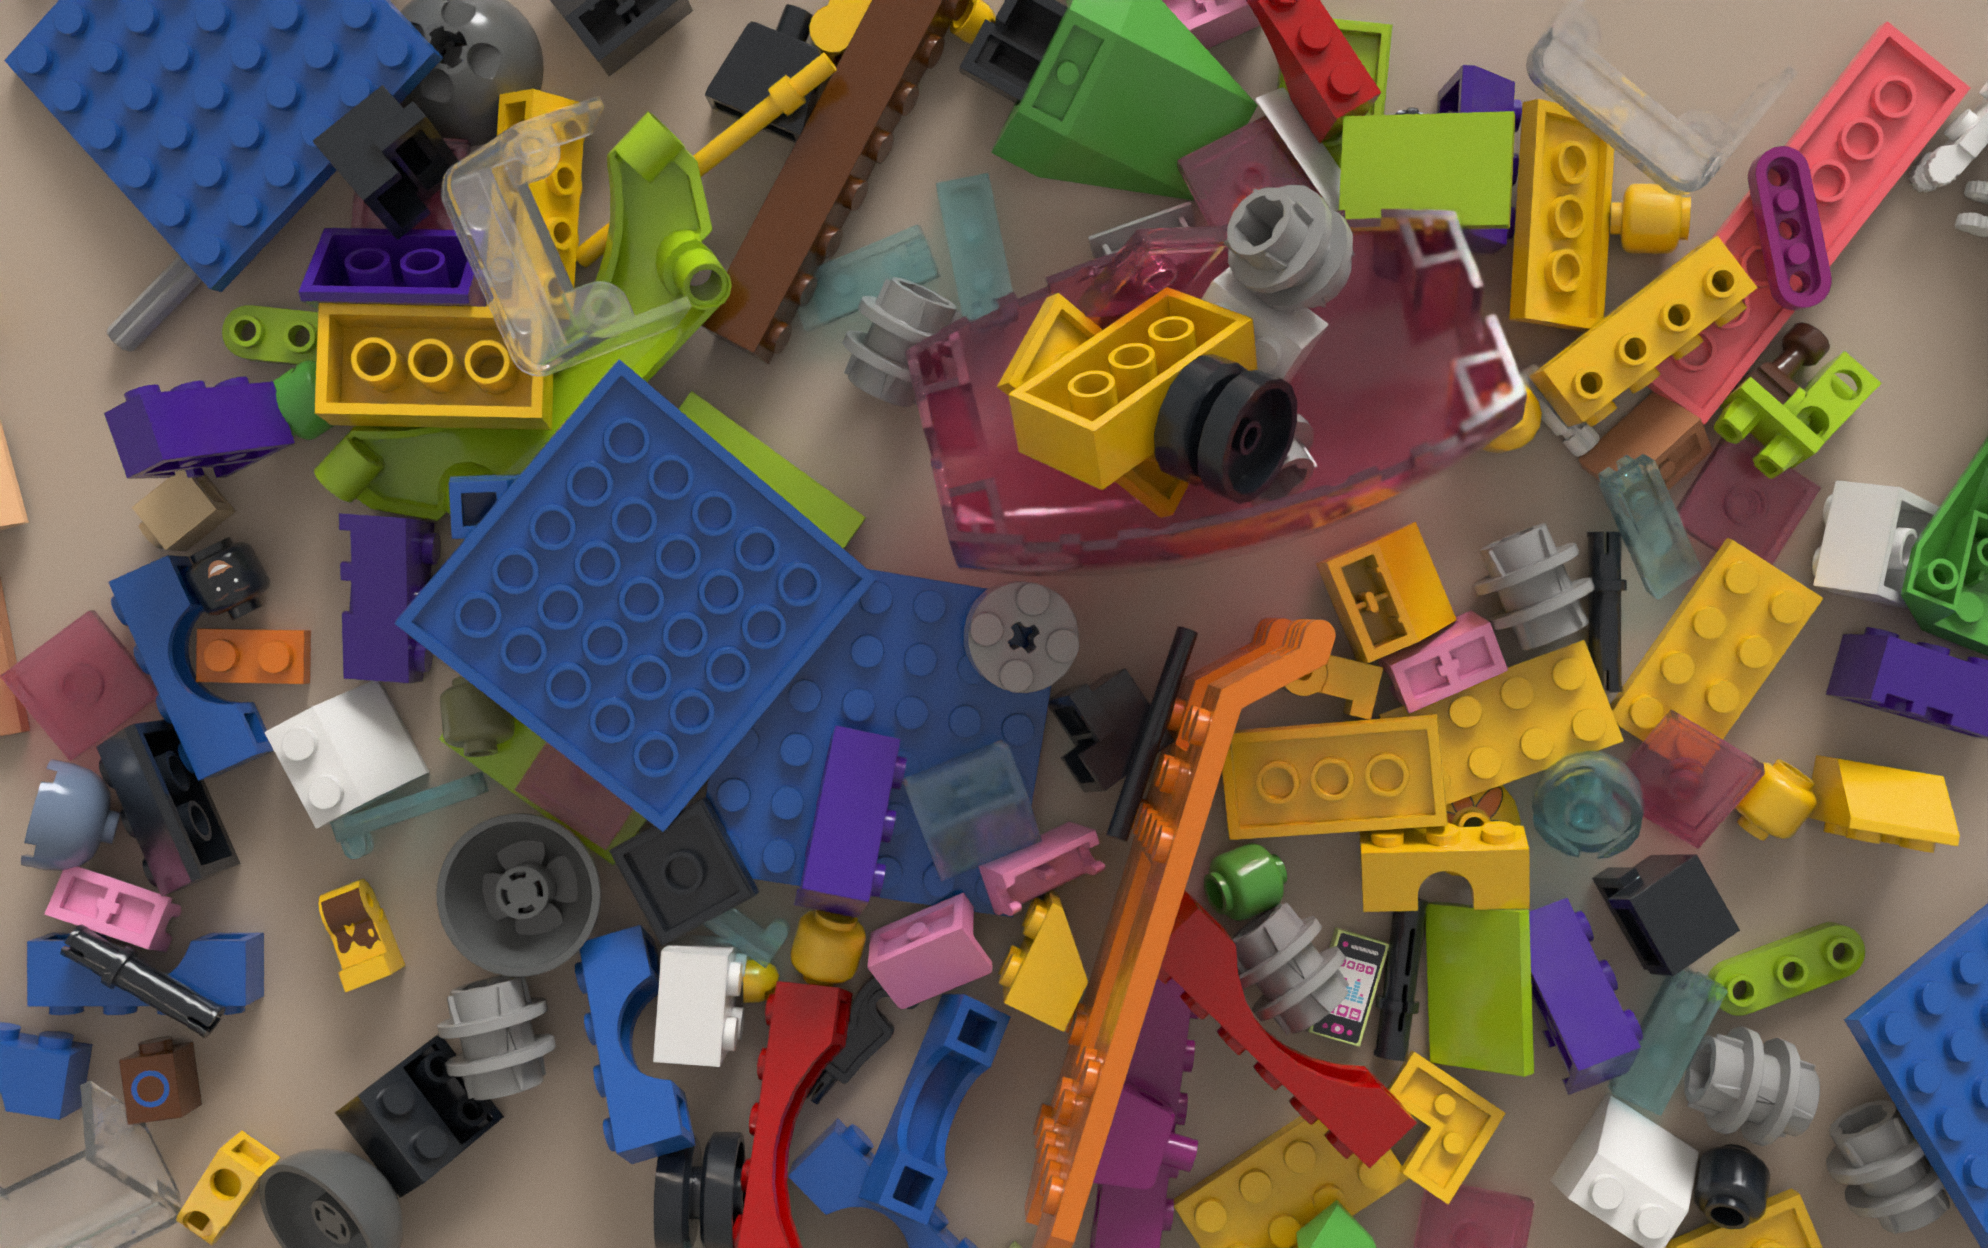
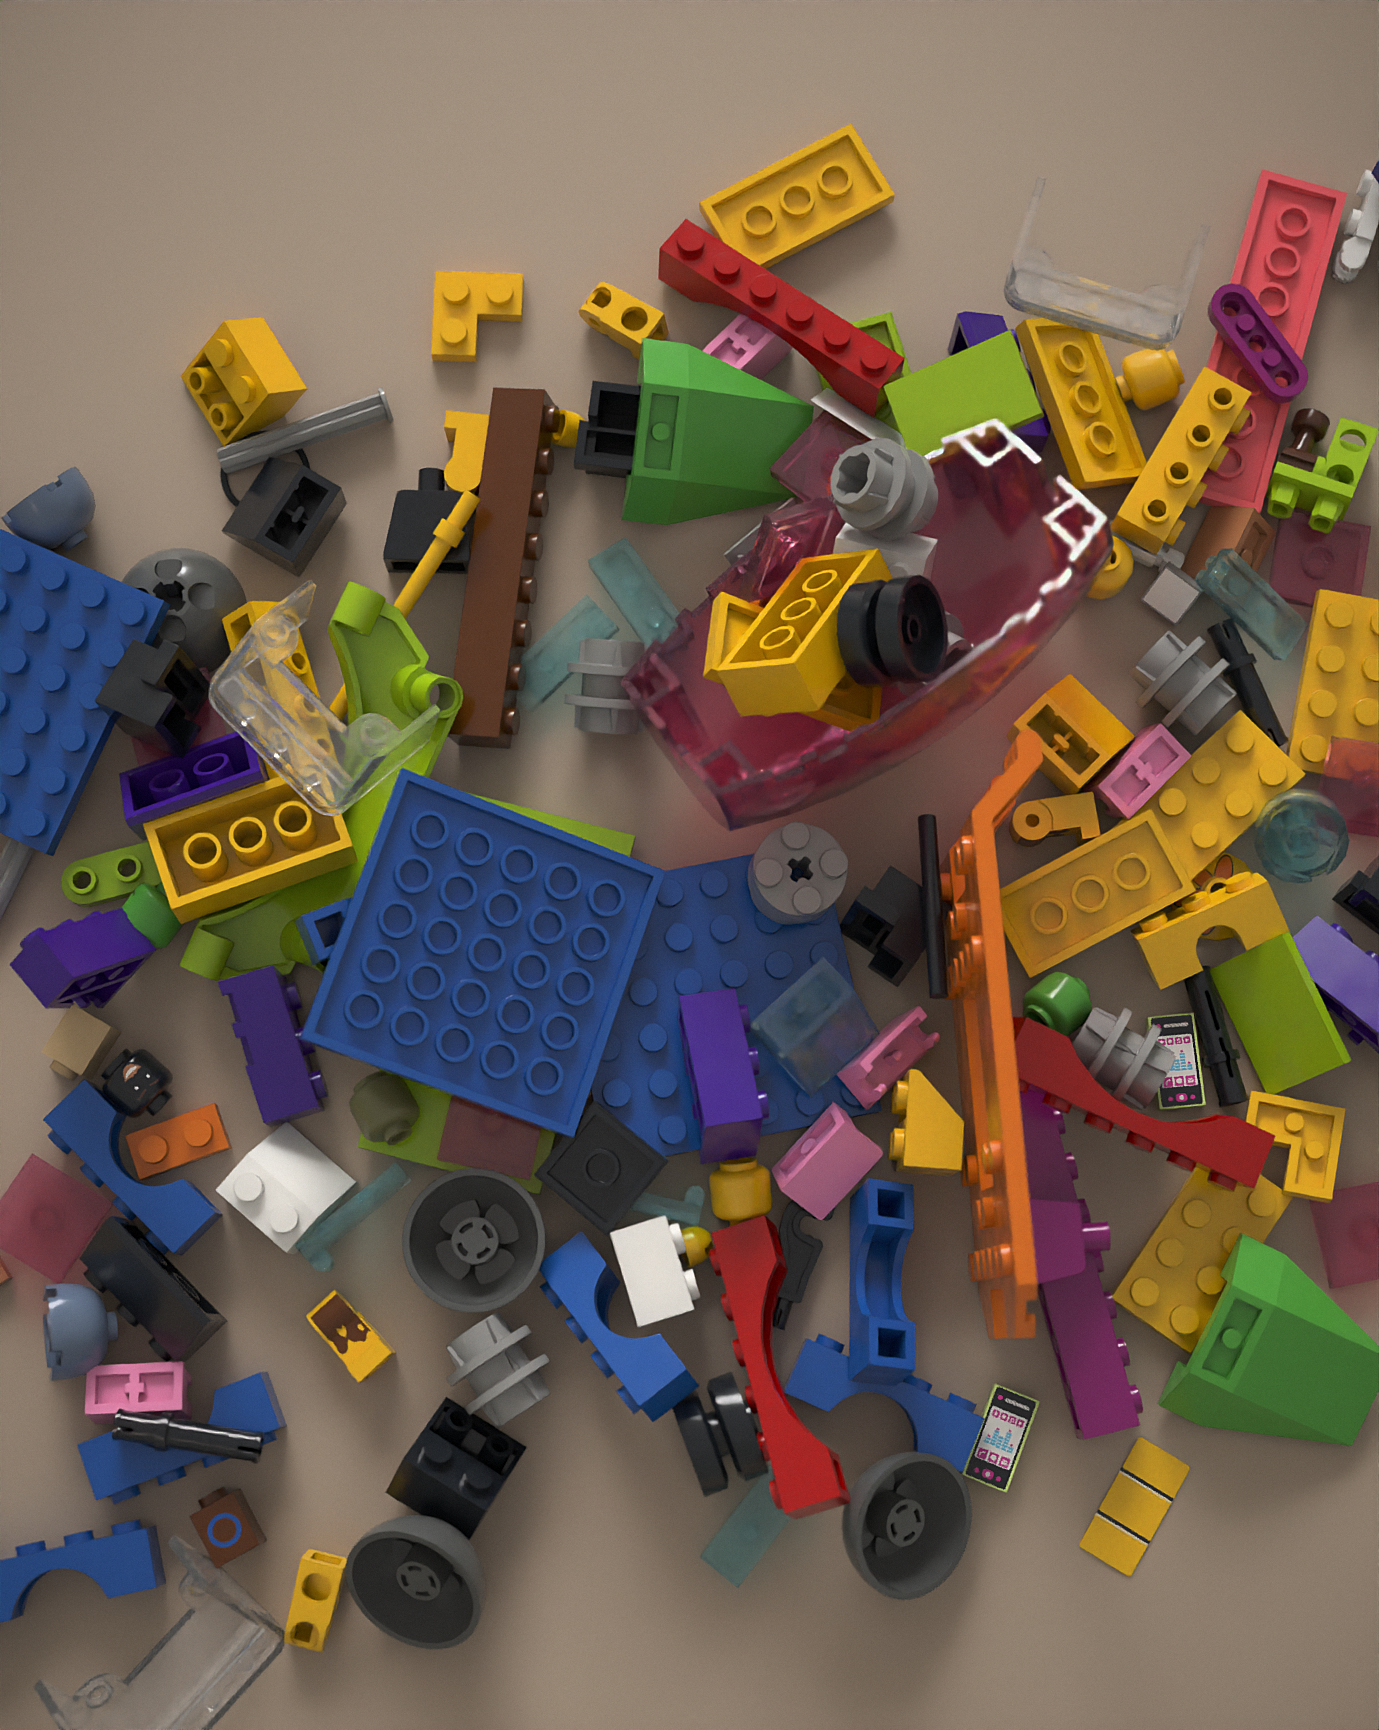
camera: 30 degrees left, 10 degrees down
(1566, 476) = (1172, 593): none -> white tile

